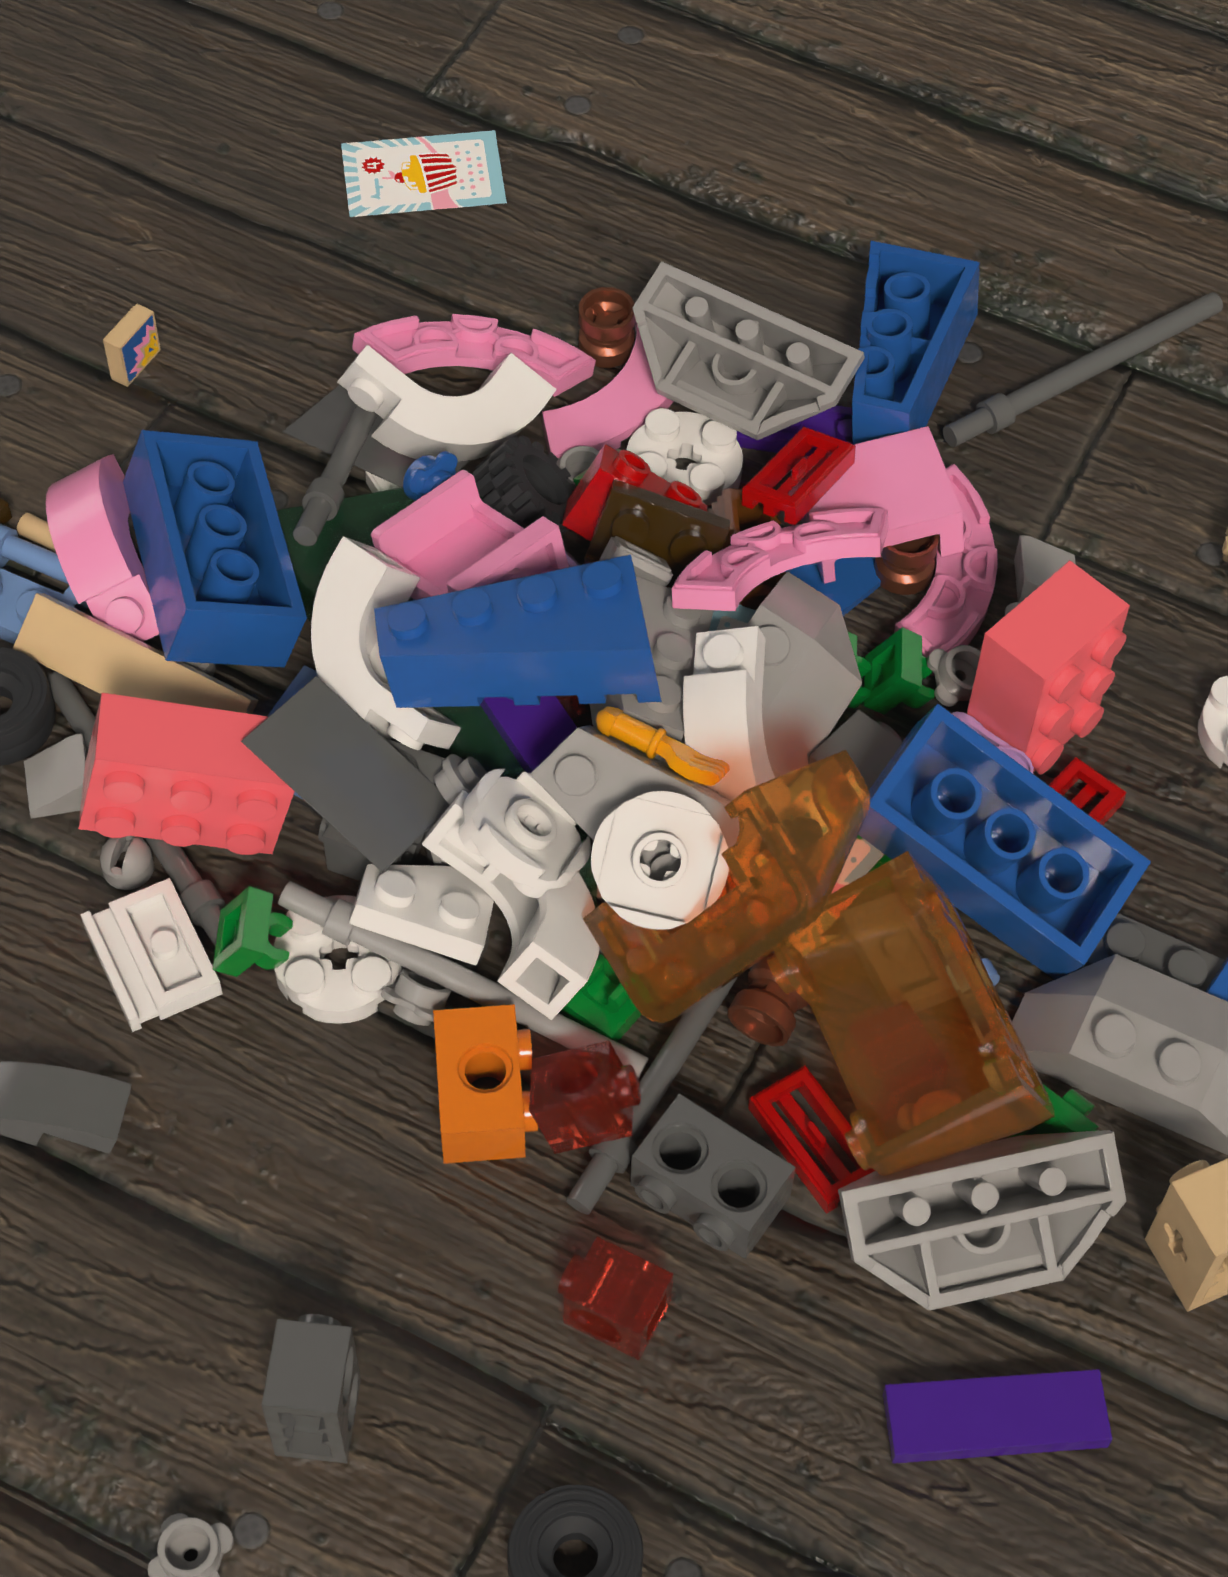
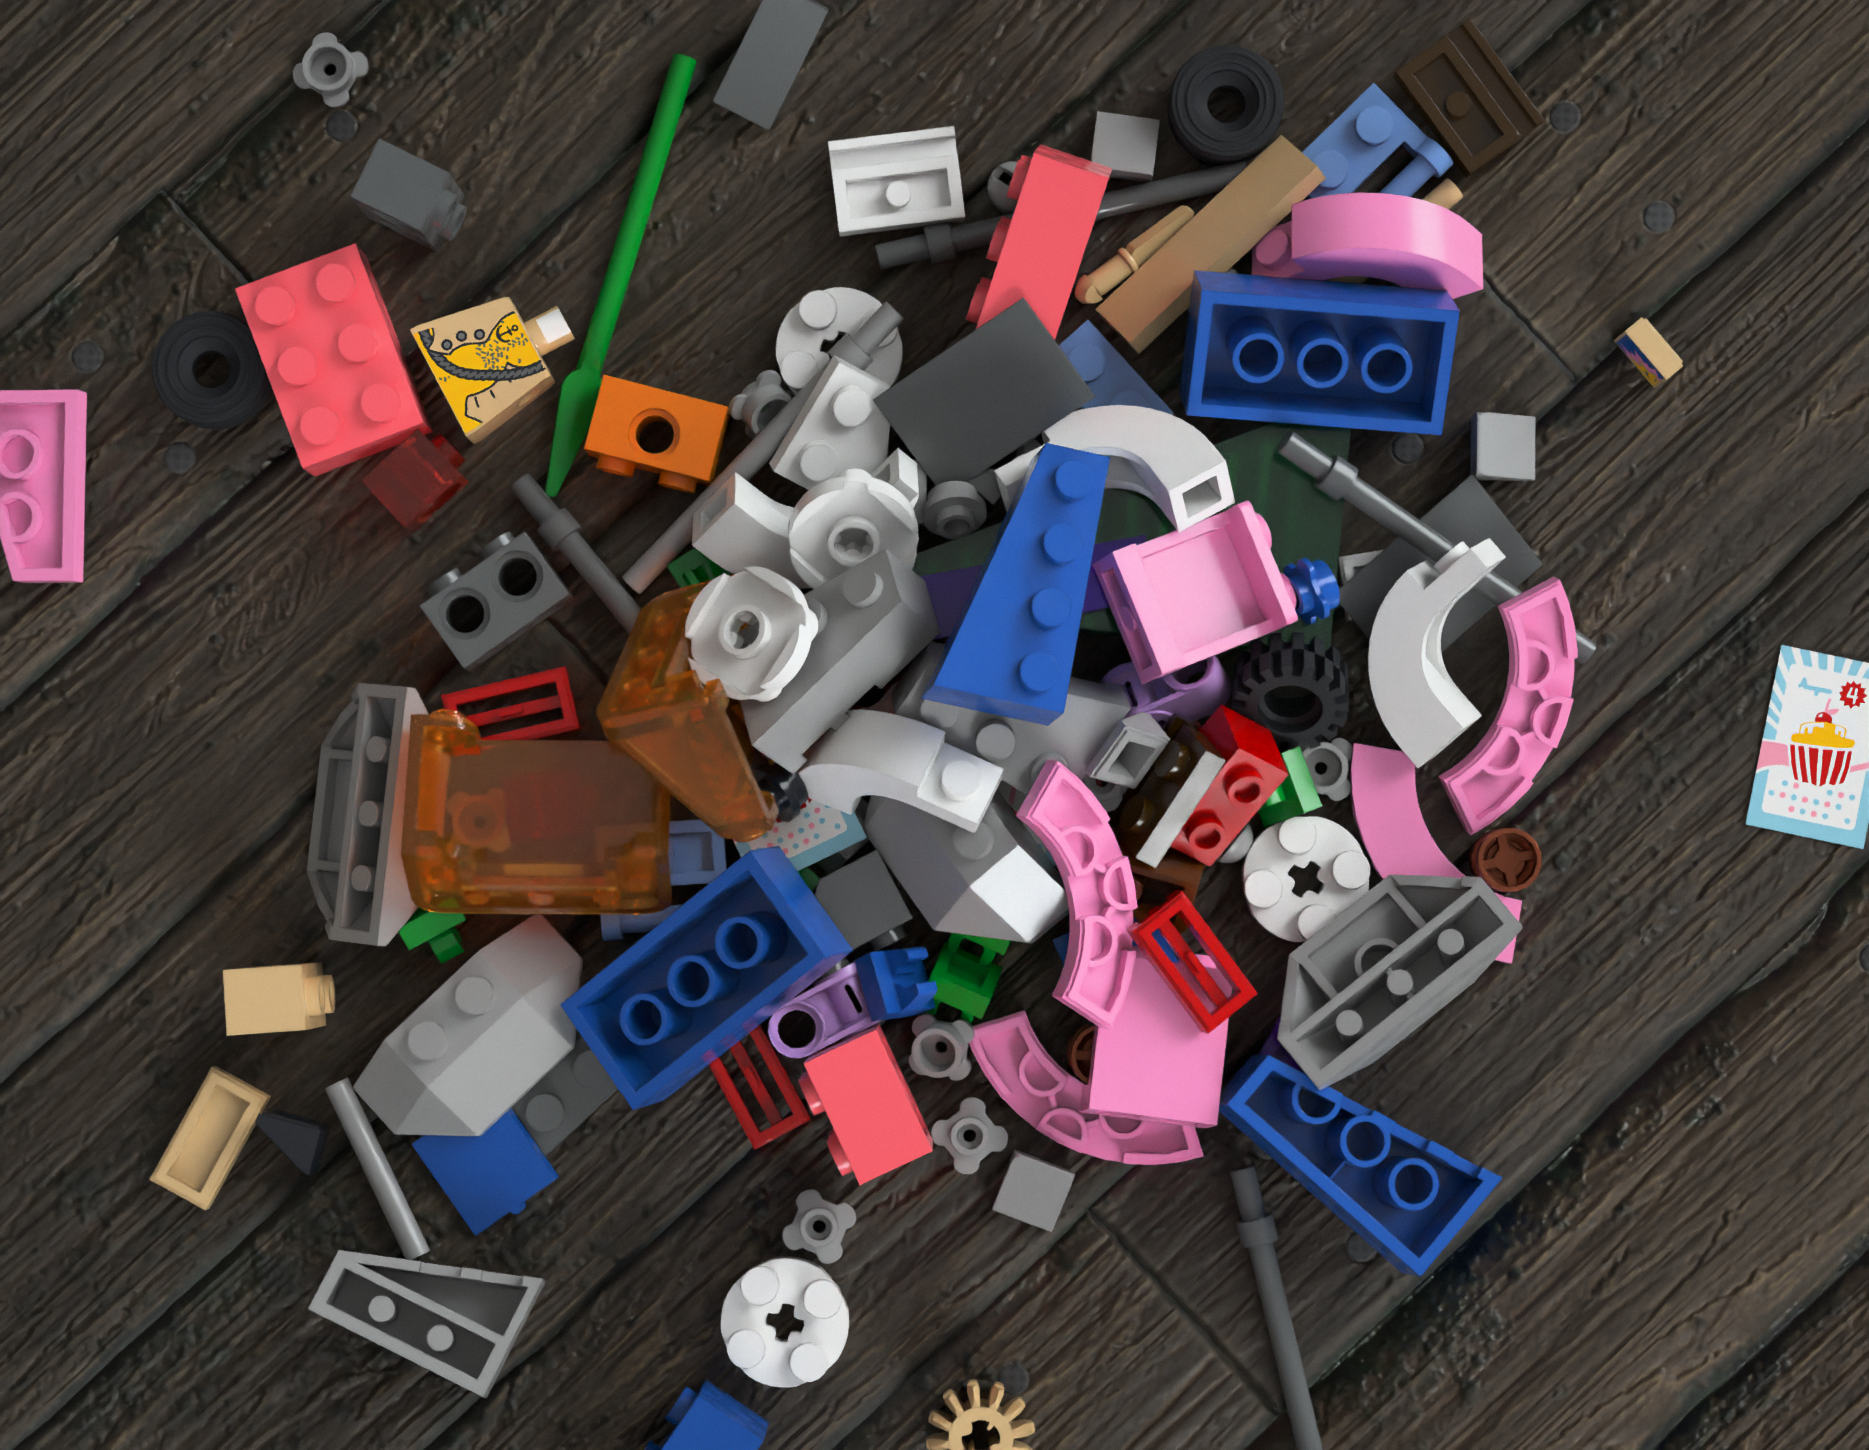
camera: 110 degrees right, 30 degrees up
(245, 931) = (867, 263): green tile -> none
(254, 423) = (1502, 447): none -> light grey slope
(454, 1179) = (581, 387): none -> green piece
(465, 1266) = (491, 361): none -> torso
(518, 1420) = (333, 359): none -> coral brick
(583, 1096) = (617, 494): clear red brick -> none
(654, 741) = (863, 701): light orange piece -> none
(928, 692) = (896, 983): none -> blue tile
(996, 1416) = (209, 761): dark purple tile -> none
(1163, 736) = (826, 1243): none -> light grey plate

